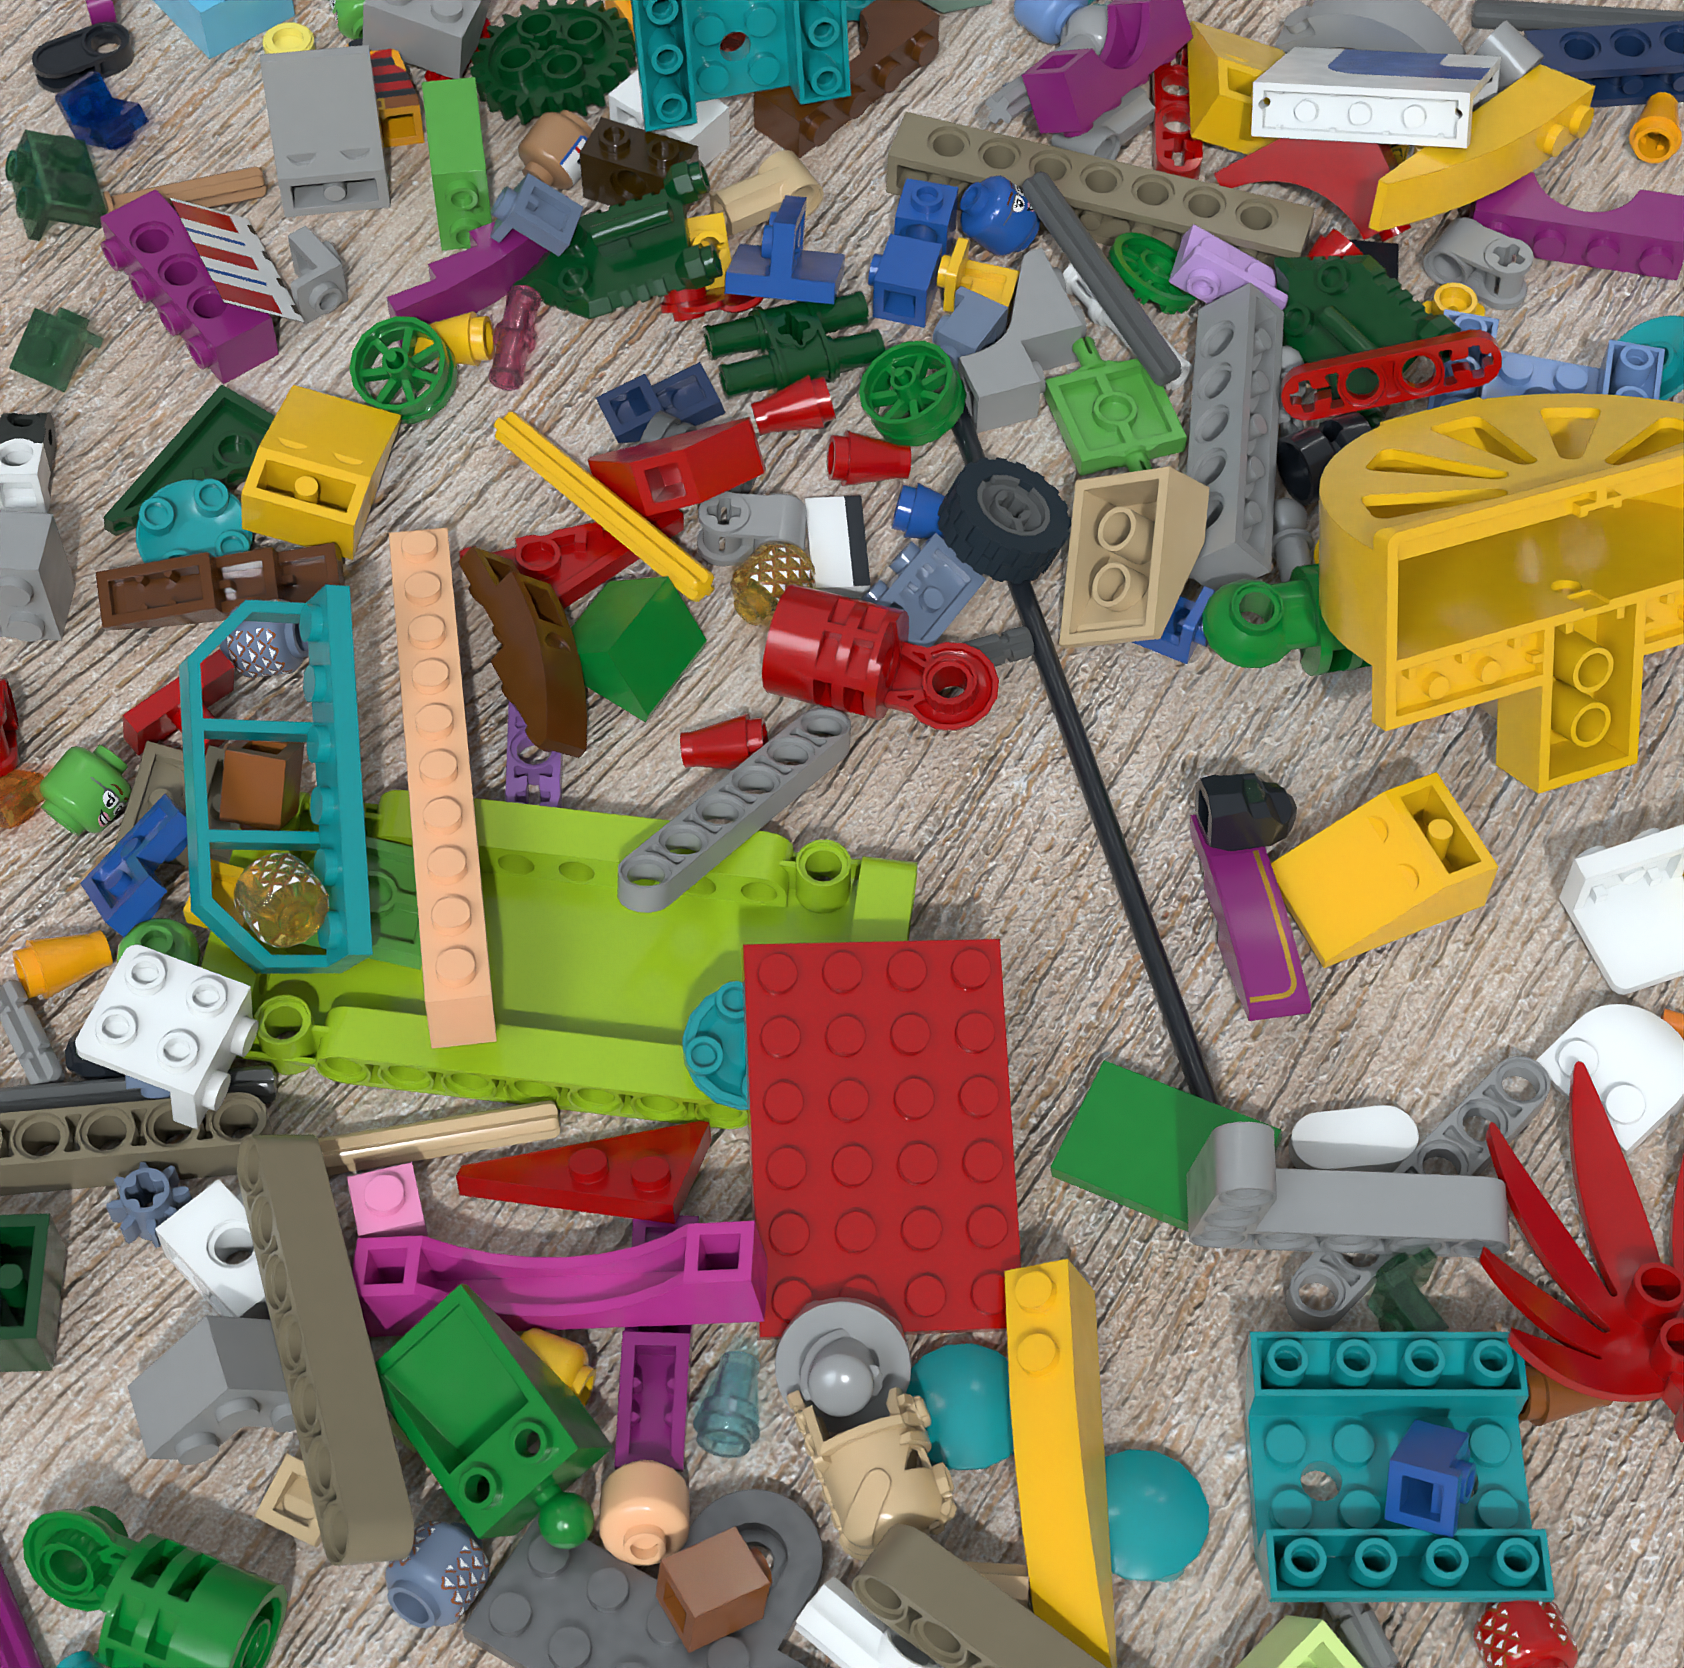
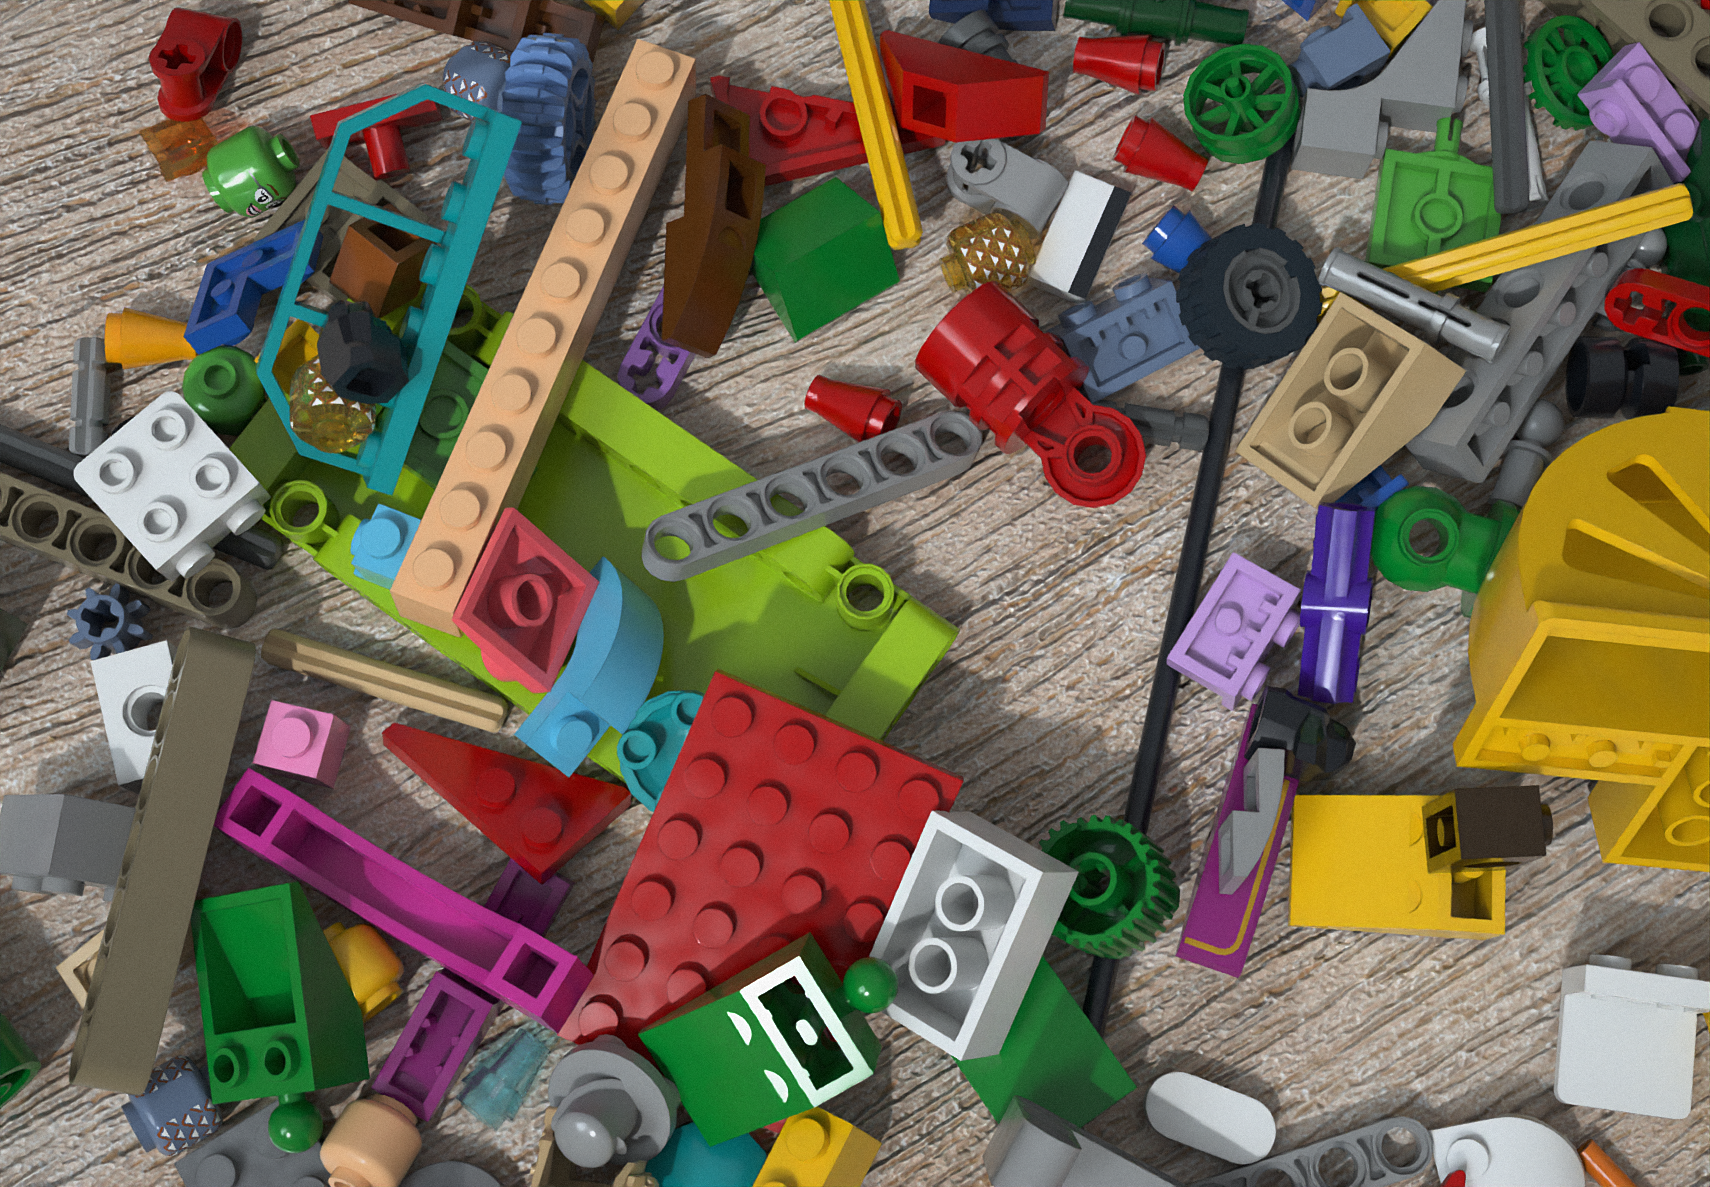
camera: 30 degrees right, 20 degrees up
(296, 834) = (361, 354): none -> black rock
(336, 568) = (554, 98): none -> medium blue gear
(394, 1002) = (382, 545): none -> medium azure brick
(542, 984) = (524, 604): none -> coral slope
(642, 1020) = (606, 676): none -> medium azure arch
(943, 1237) = (759, 1040): none -> green slope
(1070, 1061) = (969, 931): none -> white brick
(1144, 763) = (1236, 631): none -> lavender bracket
(1159, 989) = (1138, 892): none -> green brick
(1189, 458) = (1436, 315): none -> light grey pin
(1196, 388) = (1540, 241): none -> yellow axle
(1211, 695) = (1336, 602): none -> dark purple piece
(1249, 876) = (1247, 831): none -> light grey slope
(1434, 777) = (1486, 829): none -> dark brown brick

